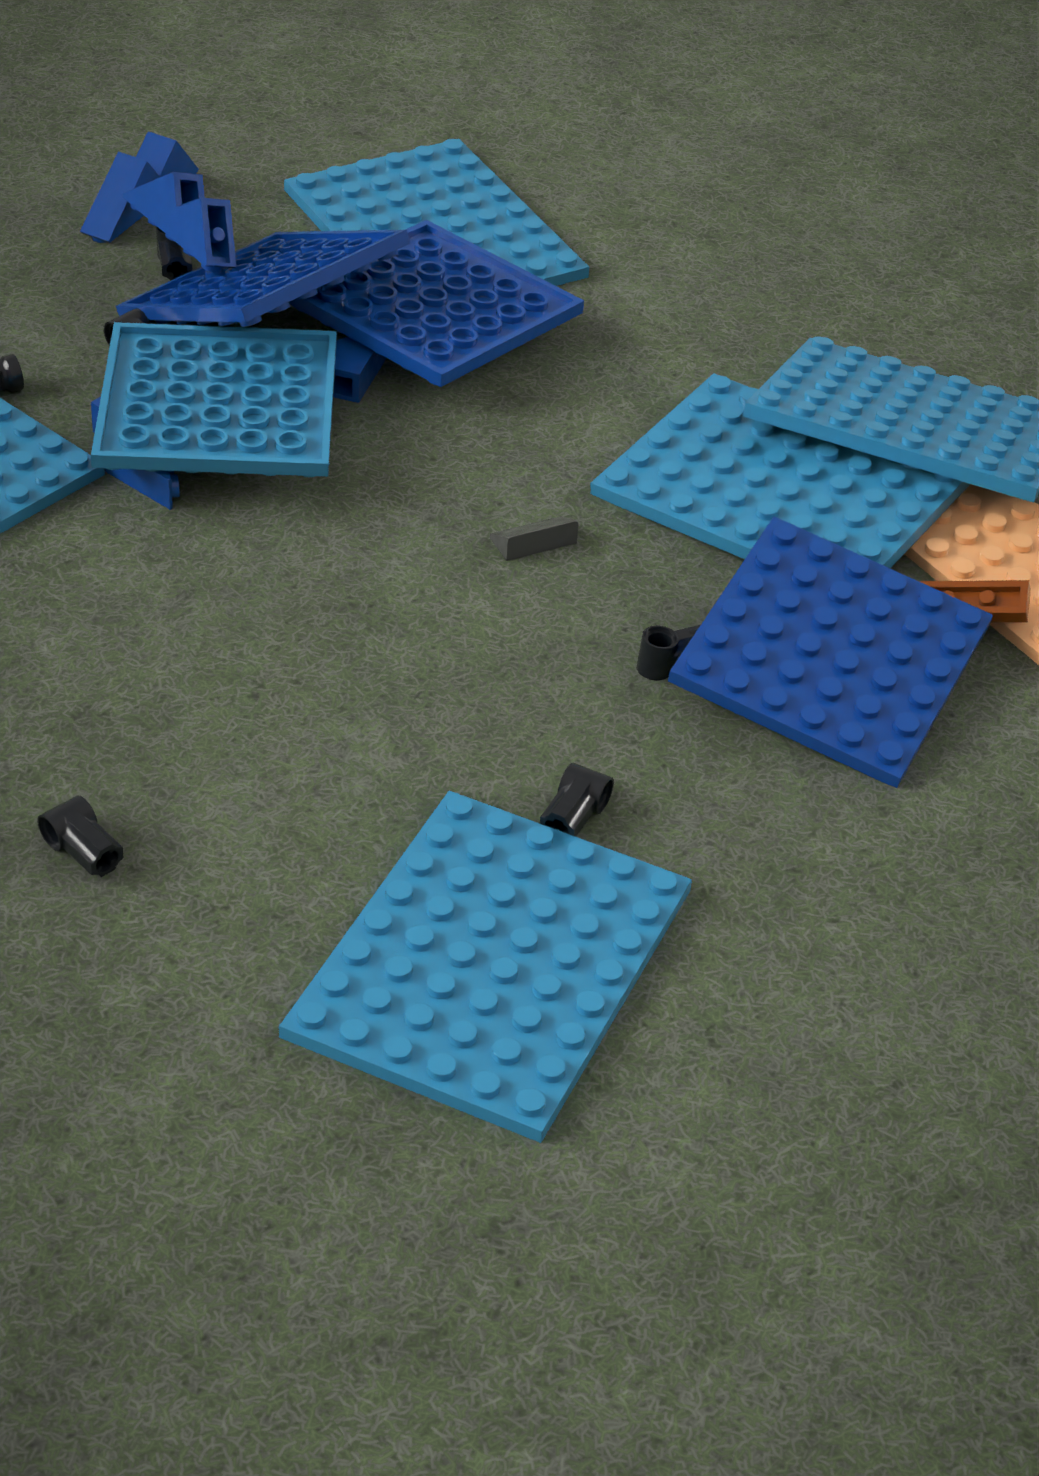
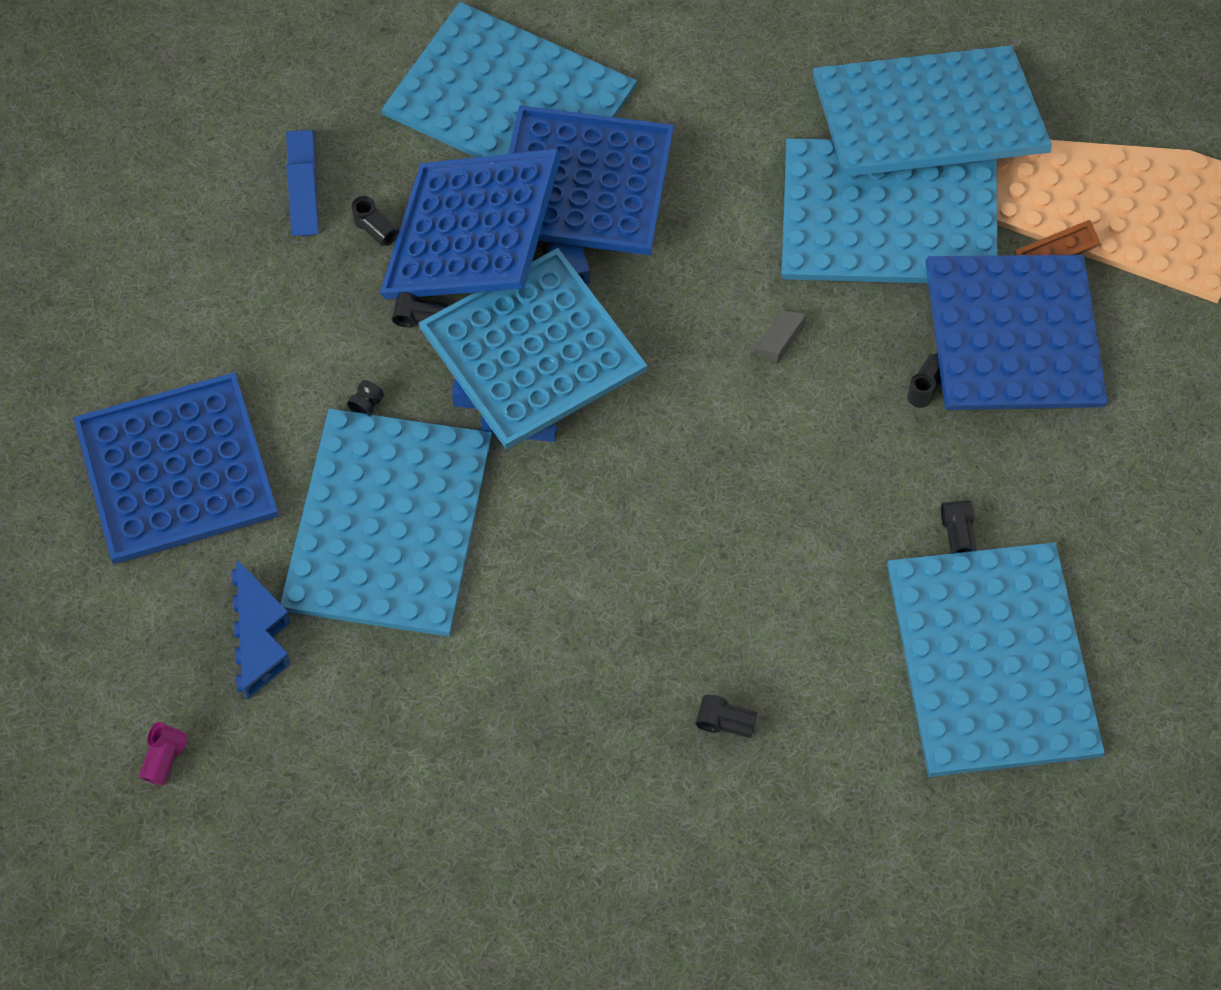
camera: 30 degrees left, 20 degrees up
(188, 218) = (372, 197): blue slope -> none

